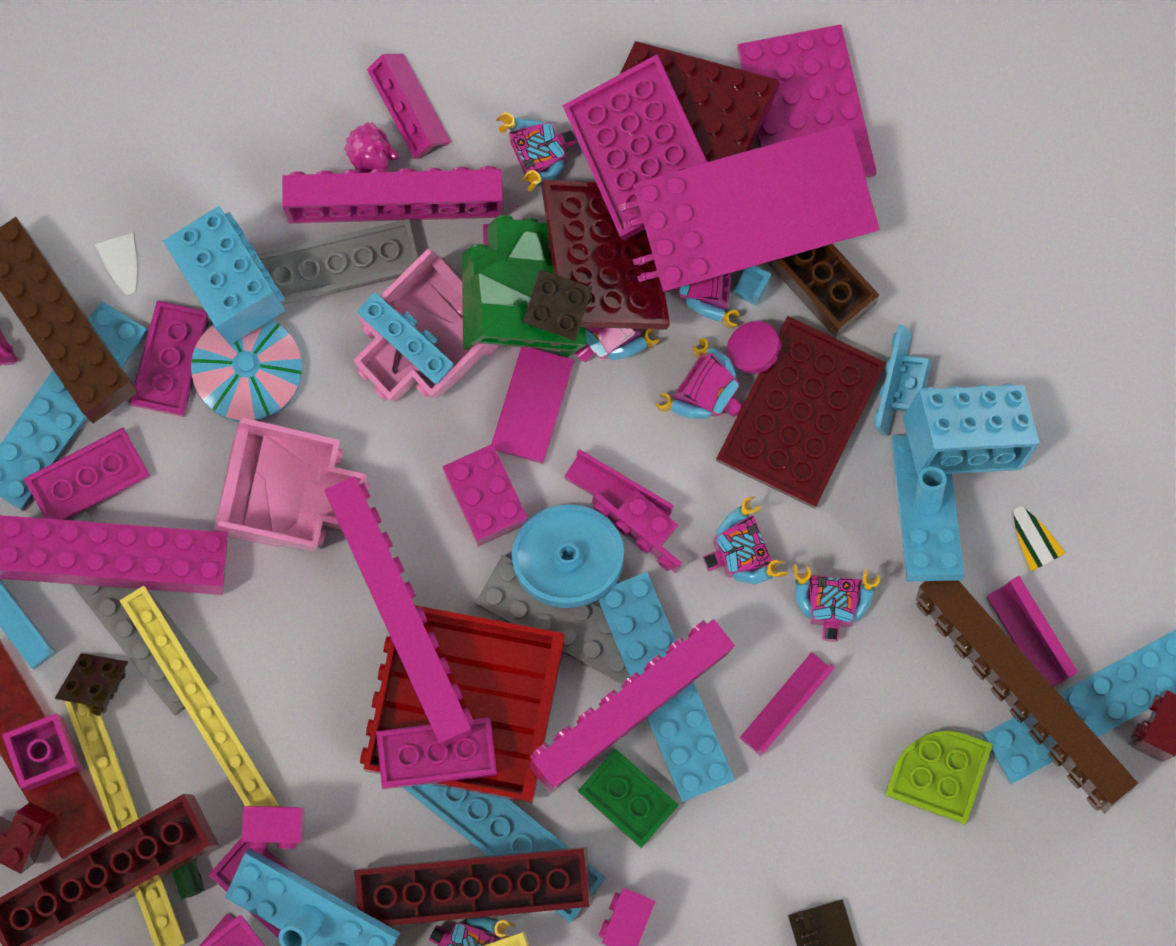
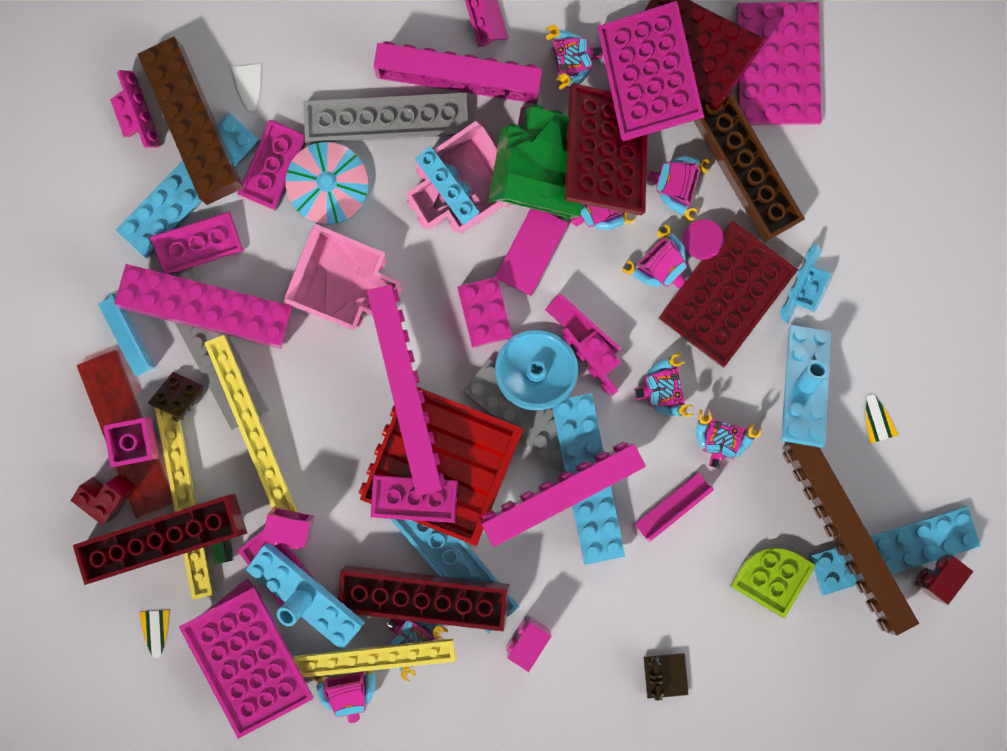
camera: 10 degrees right, 10 degrees up
(226, 274) = (321, 111): medium azure brick -> none
(369, 148) = (446, 33): dark pink animal -> none
(557, 304) = (564, 184): dark brown hinge -> none
(628, 798) = (546, 554): green plate -> none
(752, 284) = (711, 191): medium azure panel -> none
(753, 207) = (726, 136): dark pink hinge -> none
(971, 429) = (852, 334): medium azure brick -> none
(1031, 631) = (861, 488): dark pink panel -> none

